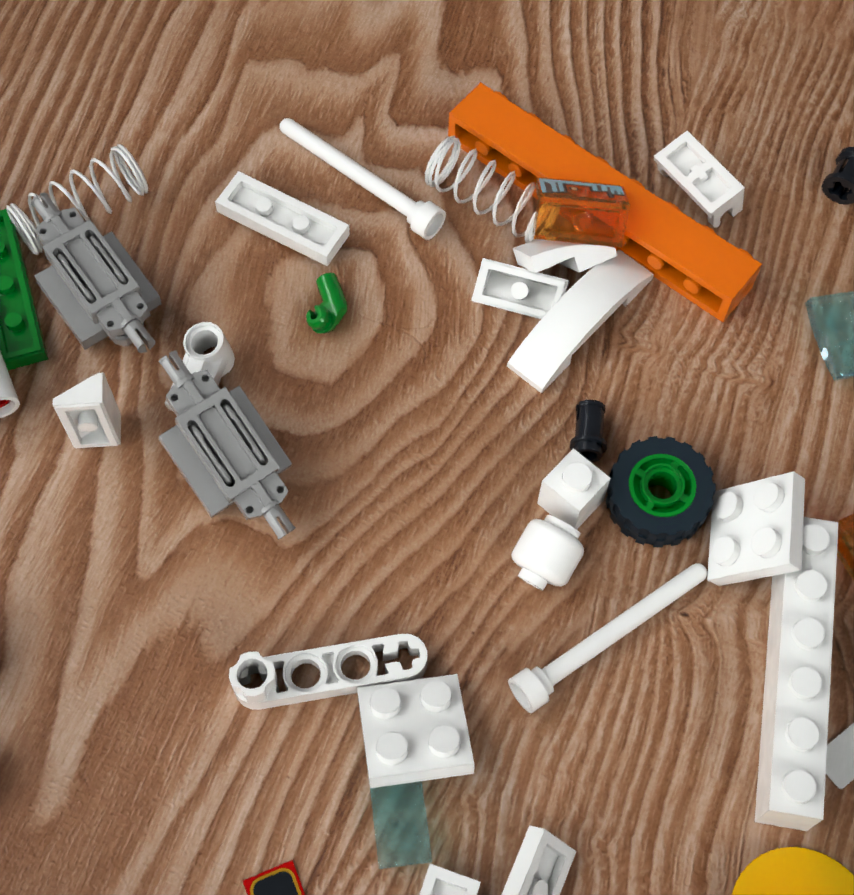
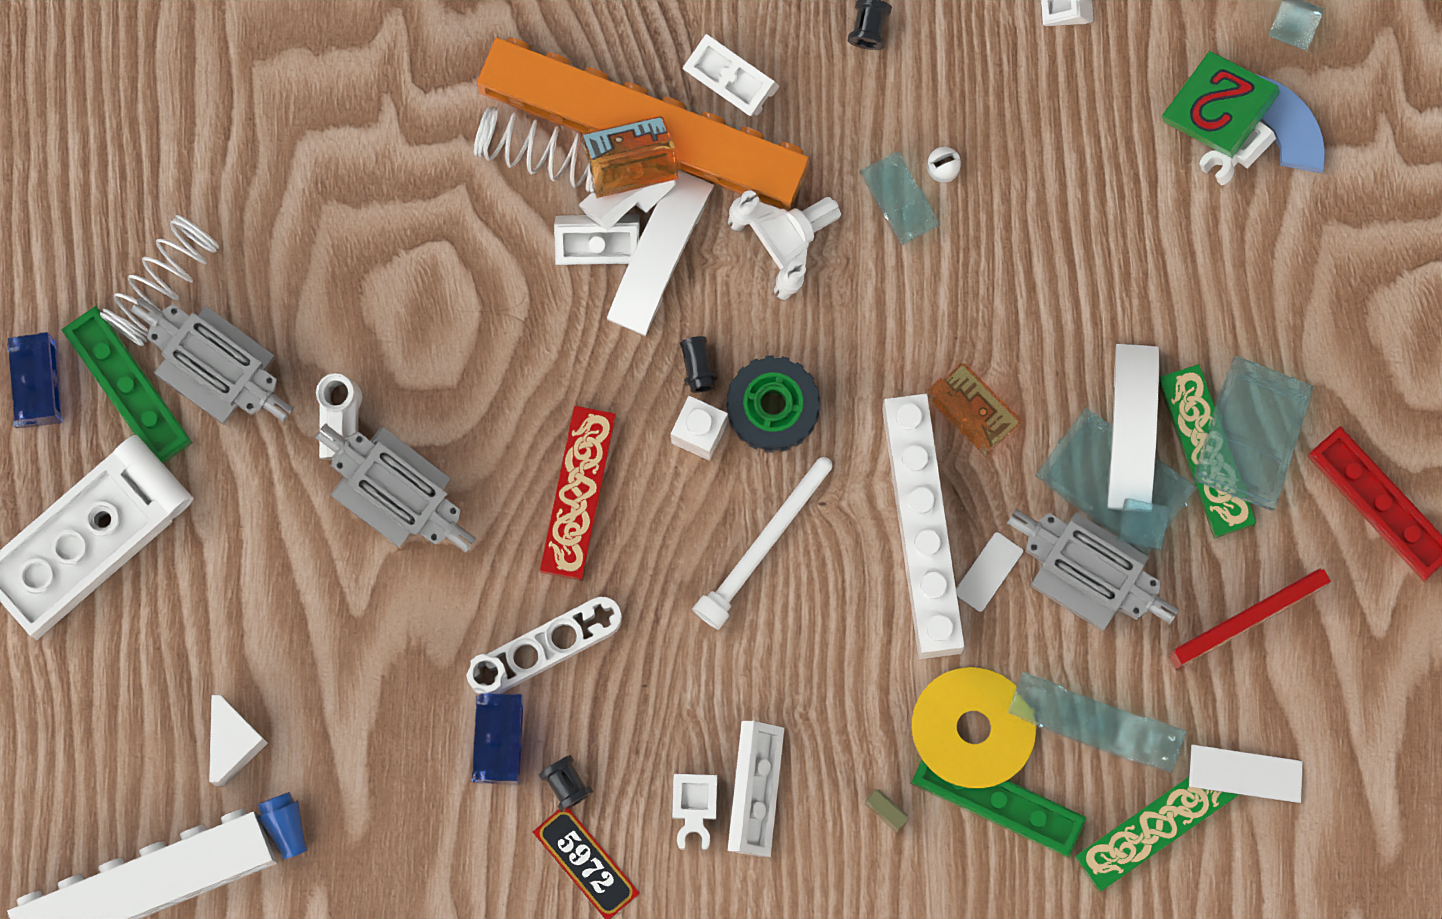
camera: 15 degrees left, 15 degrees up
(90, 413) = (264, 493): white slope -> none
(242, 757) = (498, 739): none -> clear blue hinge
(282, 218) = (354, 236): white plate -> none
(300, 834) = (566, 783): none -> black bush
(333, 307) = (432, 312): green arm -> none
(400, 825) = (636, 741): clear light blue slope -> none
(415, 731) = (629, 674): white plate -> none
(420, 523) = (578, 493): none -> tile
(424, 217) = (485, 194): white piece -> none
(547, 552) = (693, 490): white head -> none
(714, 330) = (784, 234): none -> white axle
(757, 530) = (861, 418): white plate -> none

